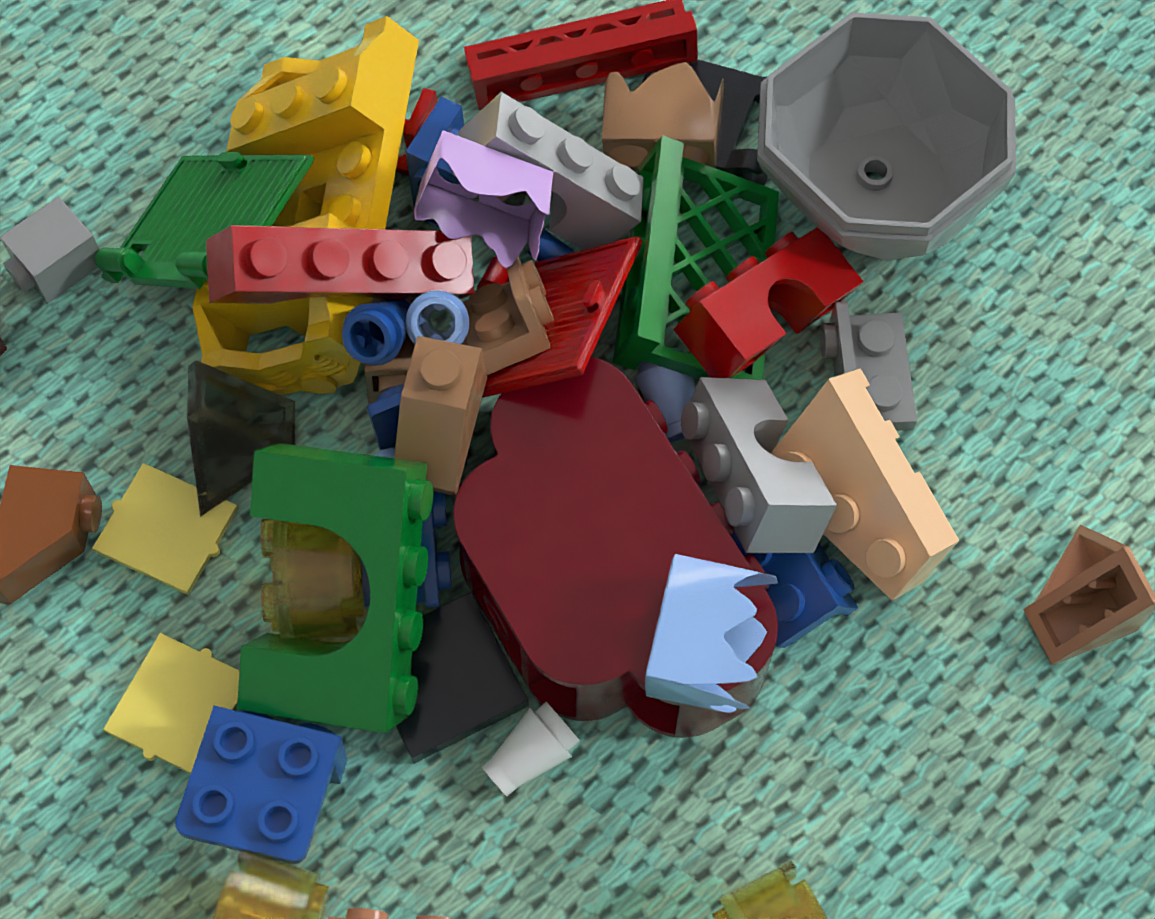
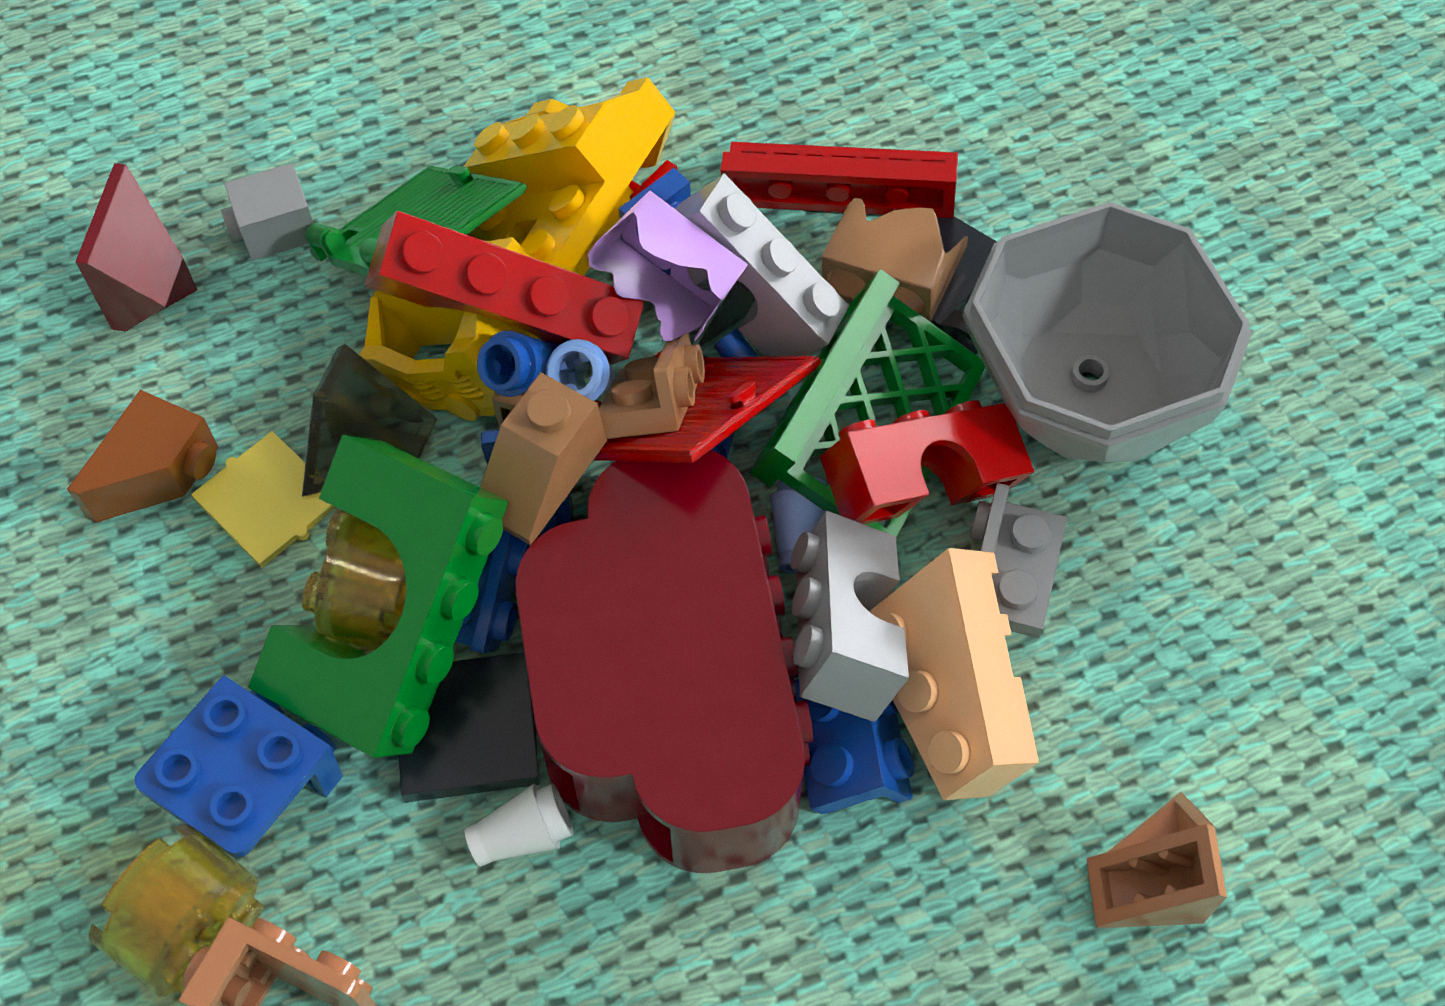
camera: 20 degrees right, 5 degrees down
(172, 702) = (195, 656): light yellow piece -> none
(704, 634) = (713, 760): light blue piece -> none

